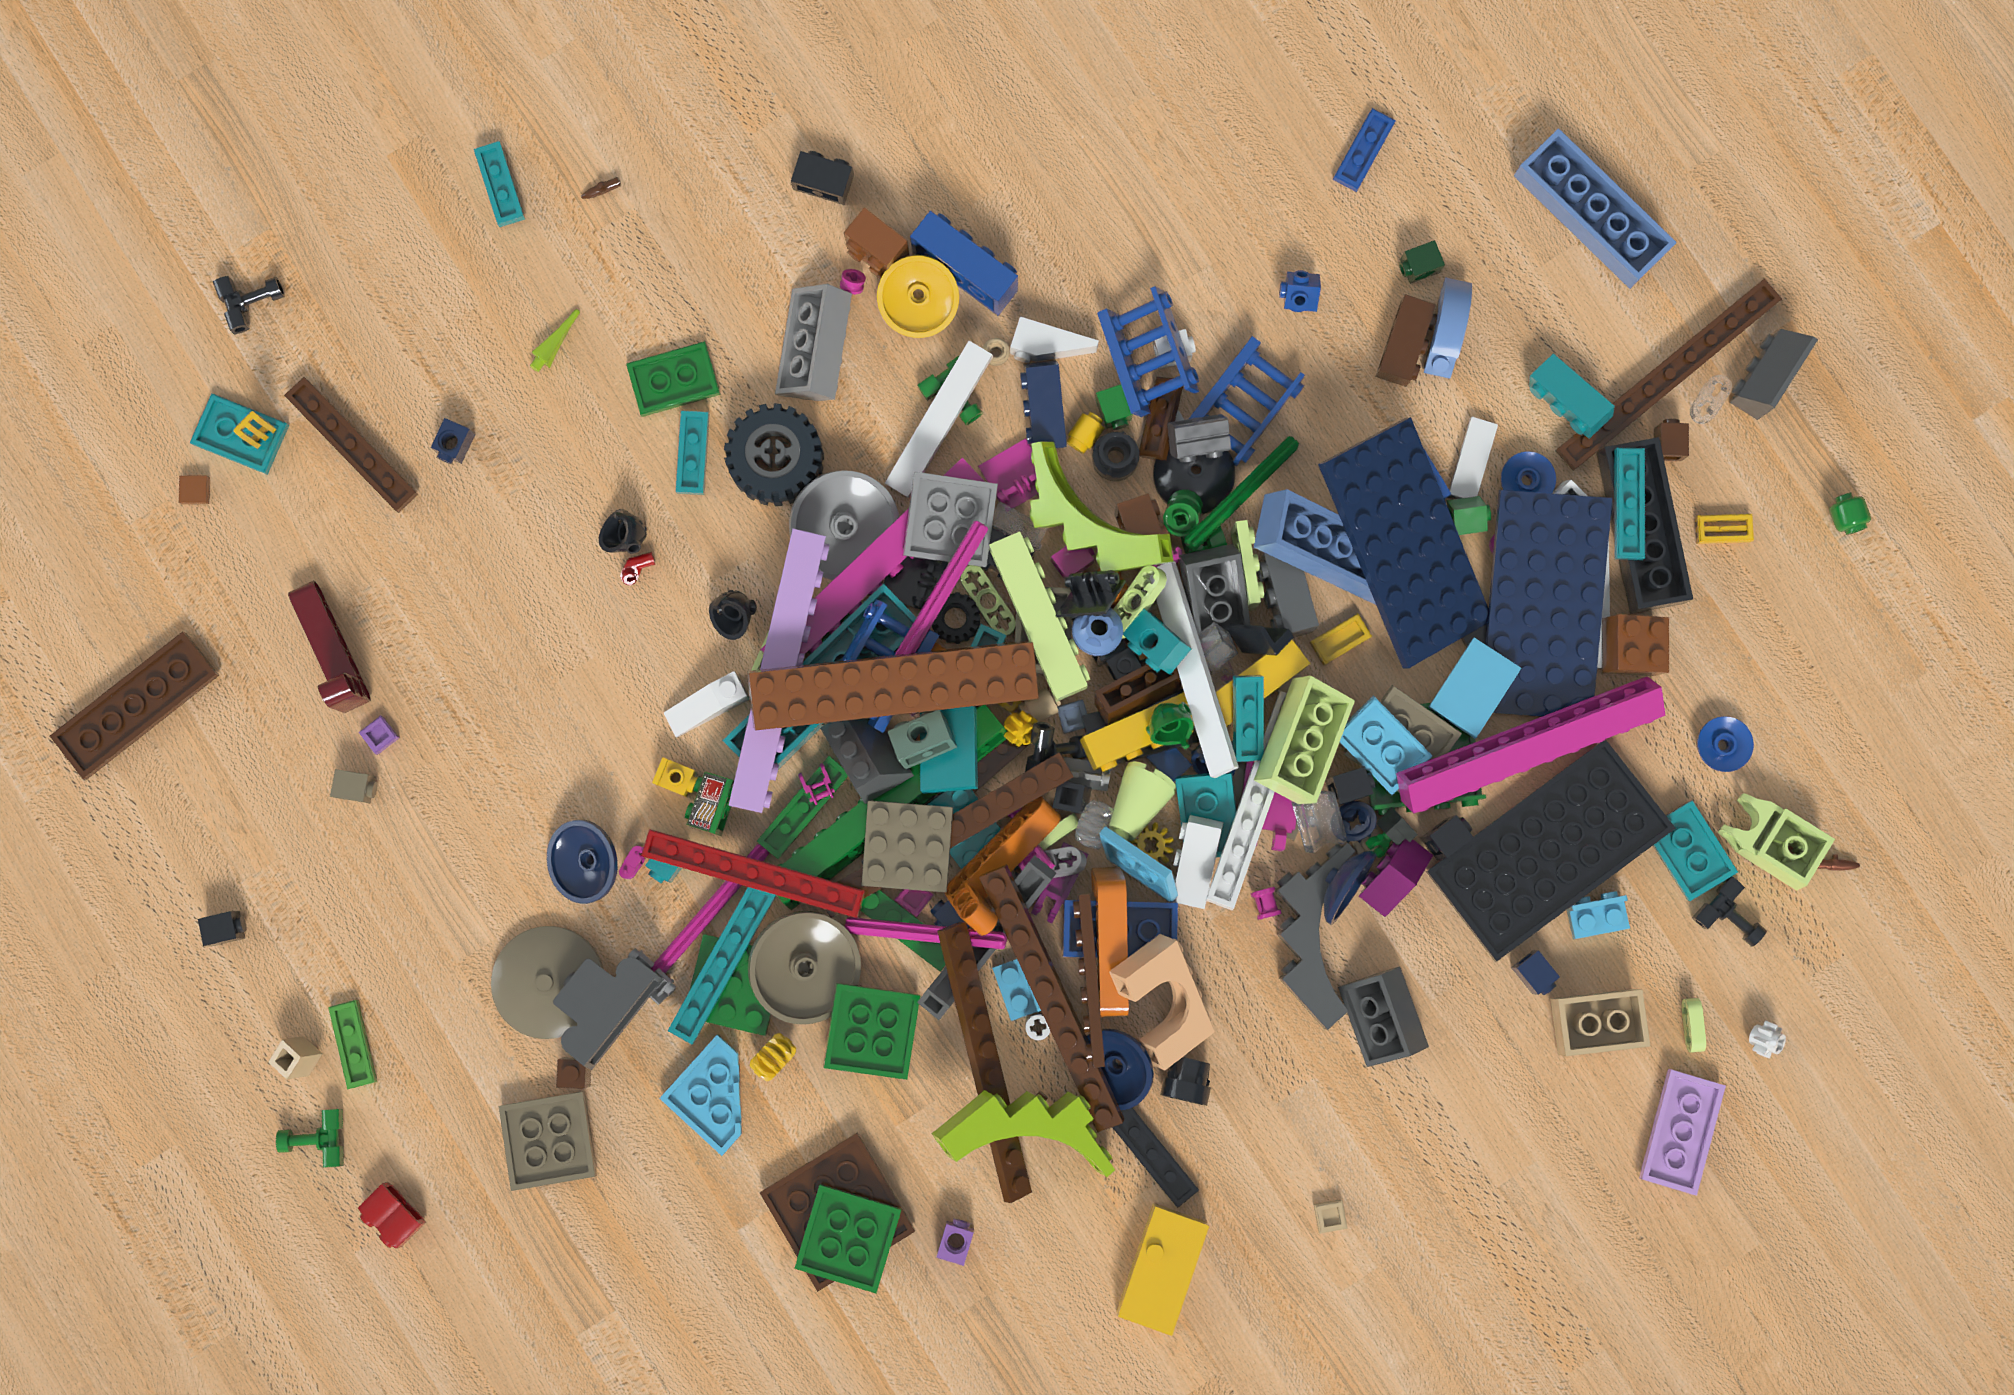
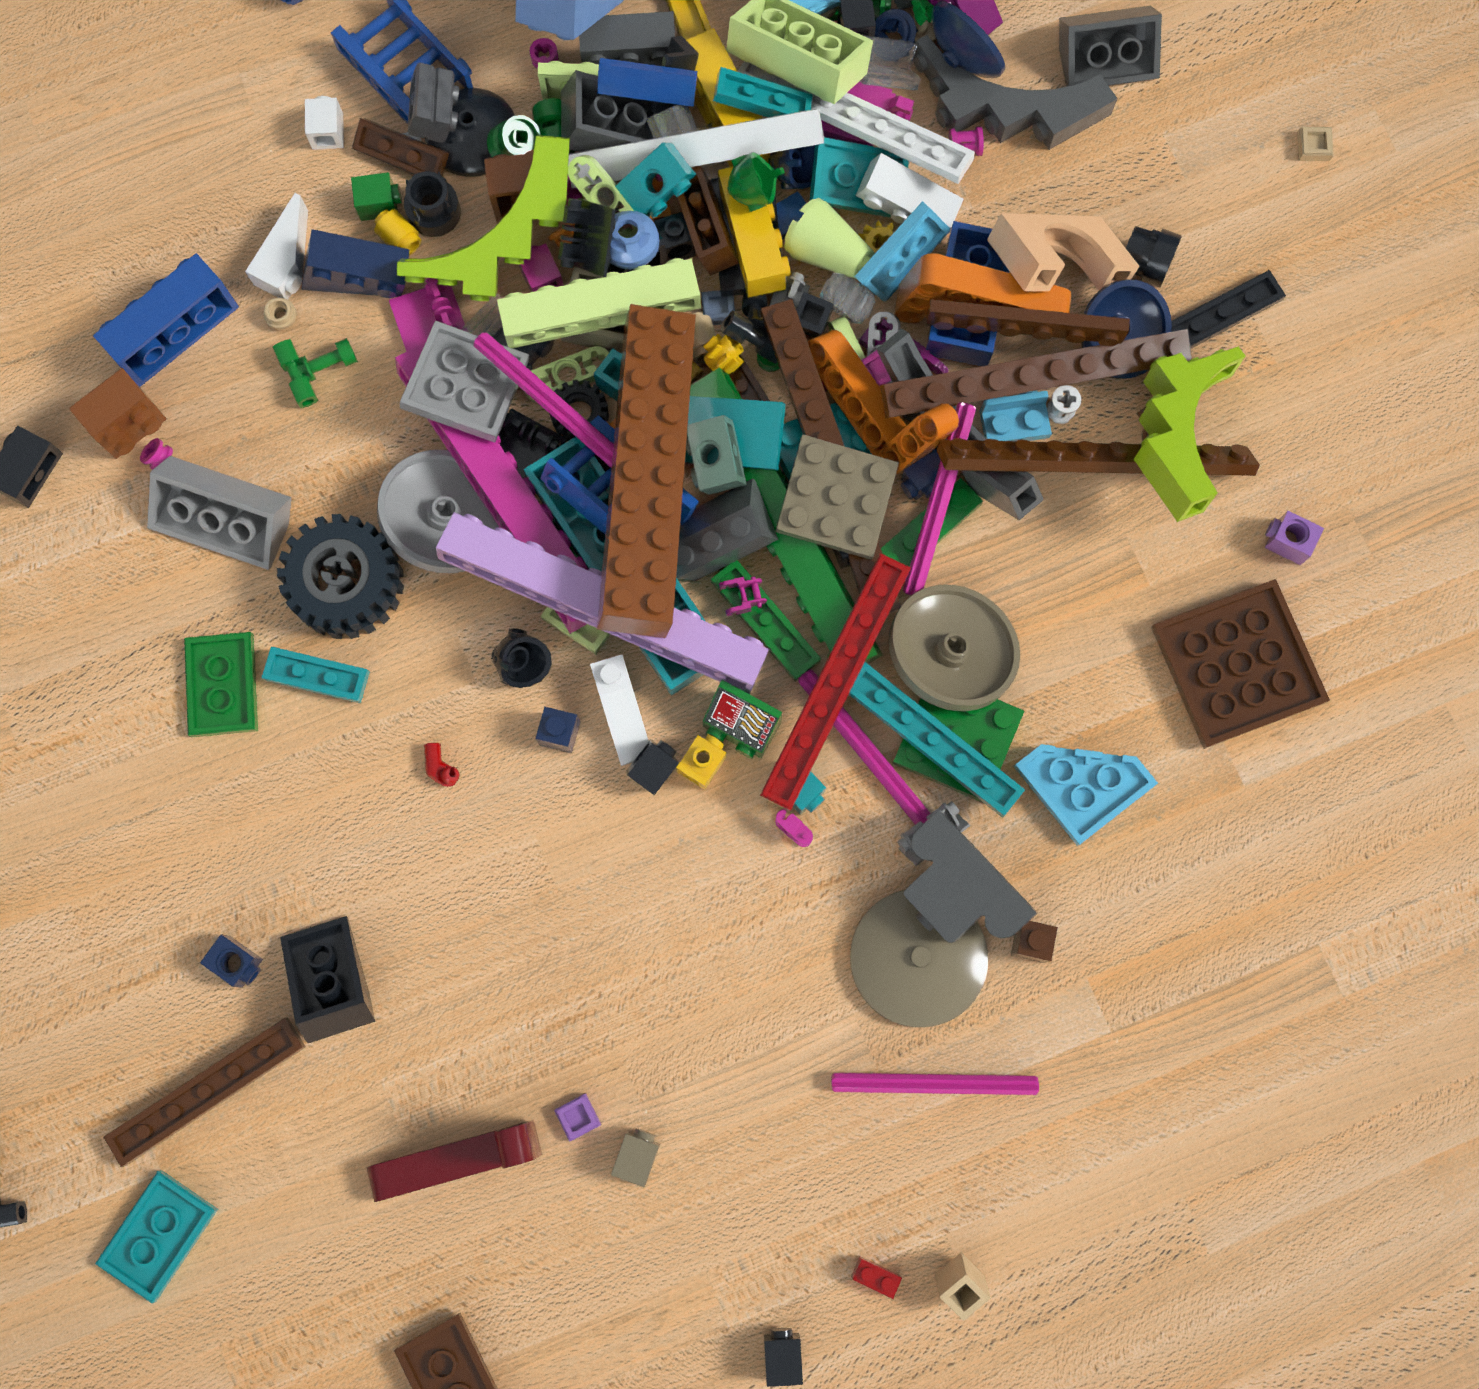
camera: 80 degrees left, 5 degrees down
(194, 489) = (214, 1307): dark orange tile -> none
(258, 433) = (158, 1203): yellow tile -> none
(294, 990) = (876, 1277): none -> red piece
(325, 1139) = (1066, 1265): green bar -> none
(352, 1044) = (954, 1213): bright green tile -> none
(391, 1215) = (1173, 1197): red brick -> none
(450, 1012) = (935, 1083): none -> dark pink axle
(451, 517) = (326, 980): none -> black slope
(547, 350) = (147, 827): lime piece -> none
(547, 1141) = (1109, 988): dark tan plate -> none
(572, 862) = (787, 903): dark blue dish -> none
(622, 533) = (395, 770): black helmet -> none
(662, 738) = (653, 765): none -> black brick
(679, 656) = (558, 729): none -> dark blue brick
(773, 1057) = (1052, 701): yellow gear -> none
(848, 1238) = (1276, 651): green plate -> none
(871, 1031) = (1040, 586): green plate -> none
(914, 315) = (195, 359): yellow dish -> none
(914, 900) = (896, 517): dark pink tile -> none
(939, 417) = (342, 382): white tile -> none
(1122, 348) = (310, 172): blue fence -> none
(1162, 1269) = (1353, 320): yellow brick -> none
(1240, 616) = (646, 82): none -> blue tile
(1241, 493) = (506, 76): green axle -> none

